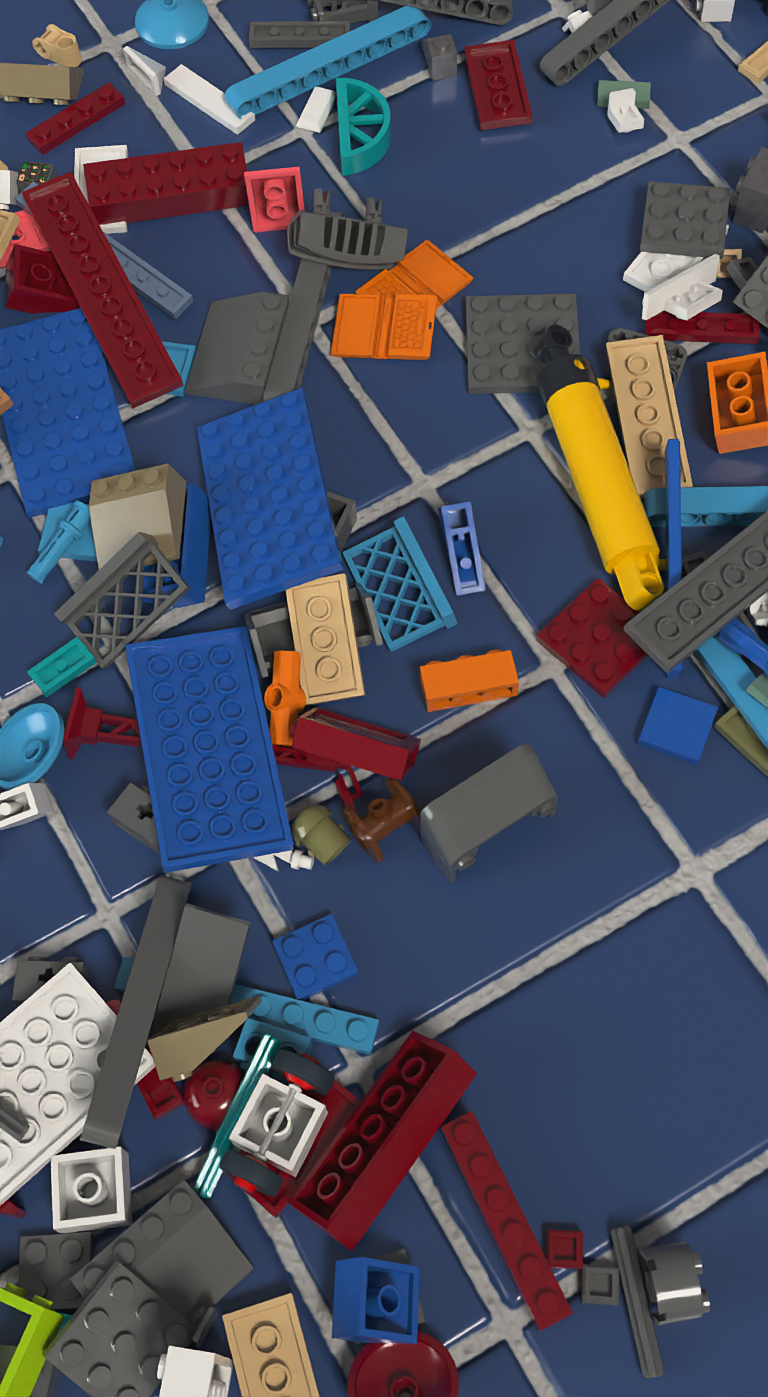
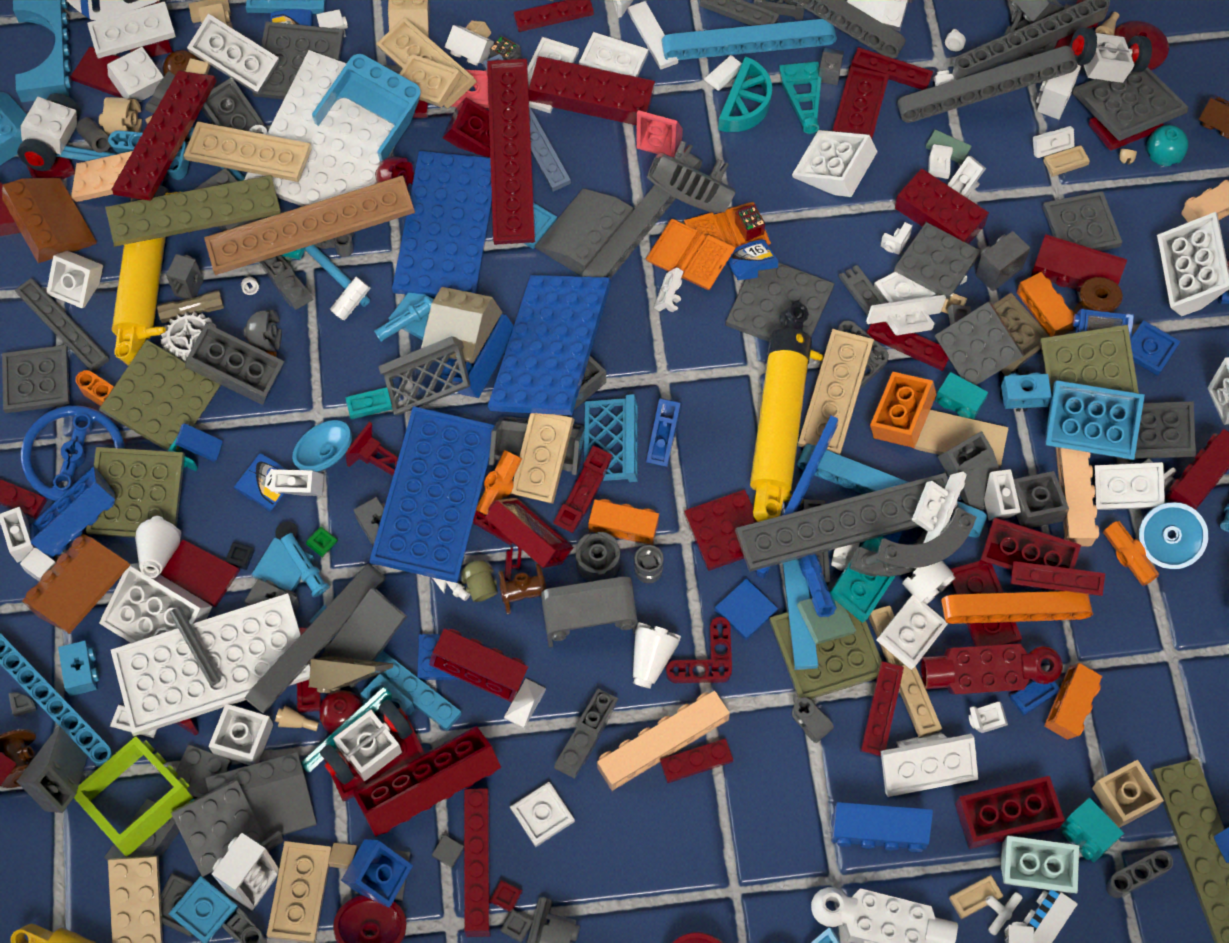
camera: 20 degrees right, 0 degrees up
(27, 881) = (285, 528): none -> black tile
(42, 927) = (279, 567): none -> dark azure tile
(81, 873) = (321, 542): none -> green tile
(85, 922) = (309, 573): none -> dark azure pin
(150, 1134) = (291, 719): none -> tan cone
(174, 134) = (613, 55): none -> white plate
(312, 1297) = (342, 855): none -> tan slope
(378, 946) = (478, 664): none -> dark red brick
(379, 379) = (666, 295): none -> white plate
(397, 660) = (584, 490): none -> dark red slope
(411, 77) = (803, 74): none -> teal plate
(439, 261) = (750, 222): none -> brick
(455, 1222) = (448, 851): none -> dark grey tile
(457, 755) = (588, 553): none -> dark grey brick
(457, 971) = (525, 703): none -> white slope
(462, 302) = (751, 258): none -> blue slope
(503, 156) = (836, 161): none -> white slope
(524, 32) = (897, 70): none -> dark red plate
(529, 719) = (648, 564): none -> dark grey wheel
(555, 1111) = (542, 814): none -> white tile
(561, 976) = (586, 733): none -> dark grey slope
(593, 832) = (652, 653): none -> white cone
(612, 288) = (861, 288): none -> dark grey hinge
(621, 220) = (898, 241): none -> white bracket
(645, 155) = (941, 206): none -> dark red brick
(663, 941) = (662, 740): none -> light nougat brick
(665, 118) = (966, 177): none -> white slope
(674, 807) = (716, 660): none -> dark red beam
(718, 948) = (696, 761): none -> dark red plate
(741, 43) = (1053, 141): none -> white plate

